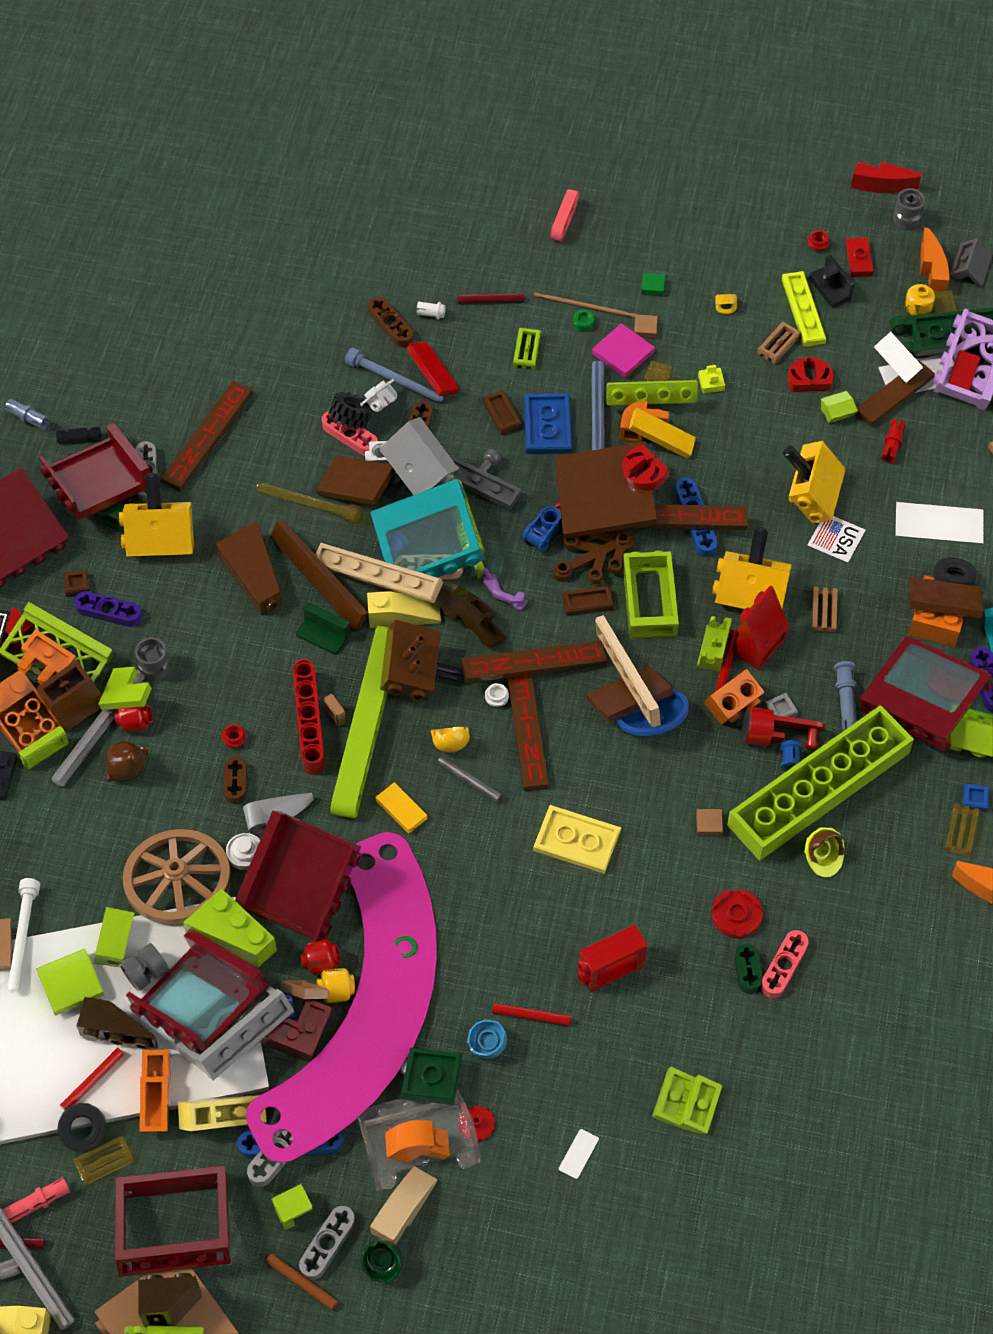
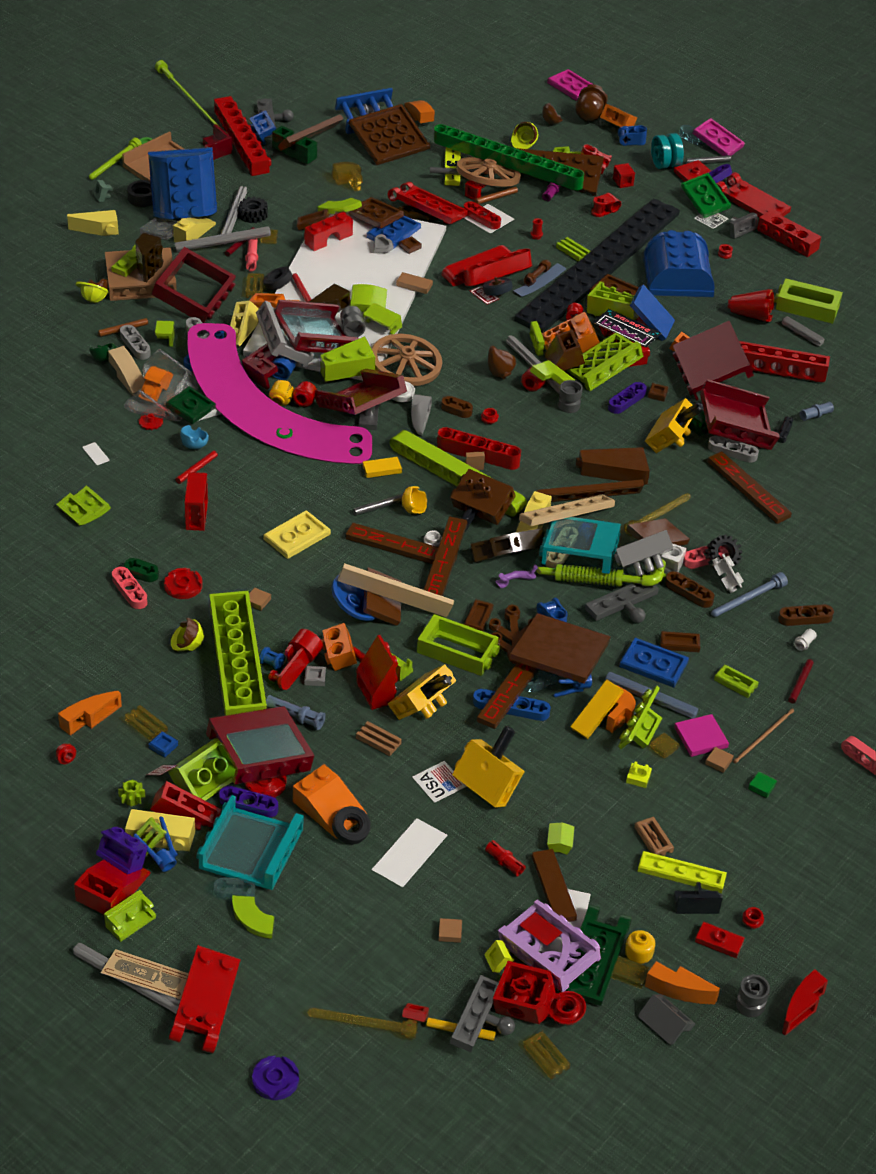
camera: 115 degrees right, 15 degrees down
(28, 891) = (442, 306): white piece -> none
(47, 653) = (601, 346): orange plate -> none
(304, 989) = (284, 371): medium nougat tile -> none
(323, 629) = (546, 480): dark green panel -> none
(432, 368) = (743, 617): red tile -> none
(583, 320) = (747, 726): green tile -> none
(637, 459) = (568, 664): red piece -> none
(726, 299) = (716, 818): yellow tile -> none
(799, 383) = (603, 848): red piece -> none
(898, 357) = (587, 900): white sticker -> none
(945, 597) = (328, 791): reddish brown tile -> none

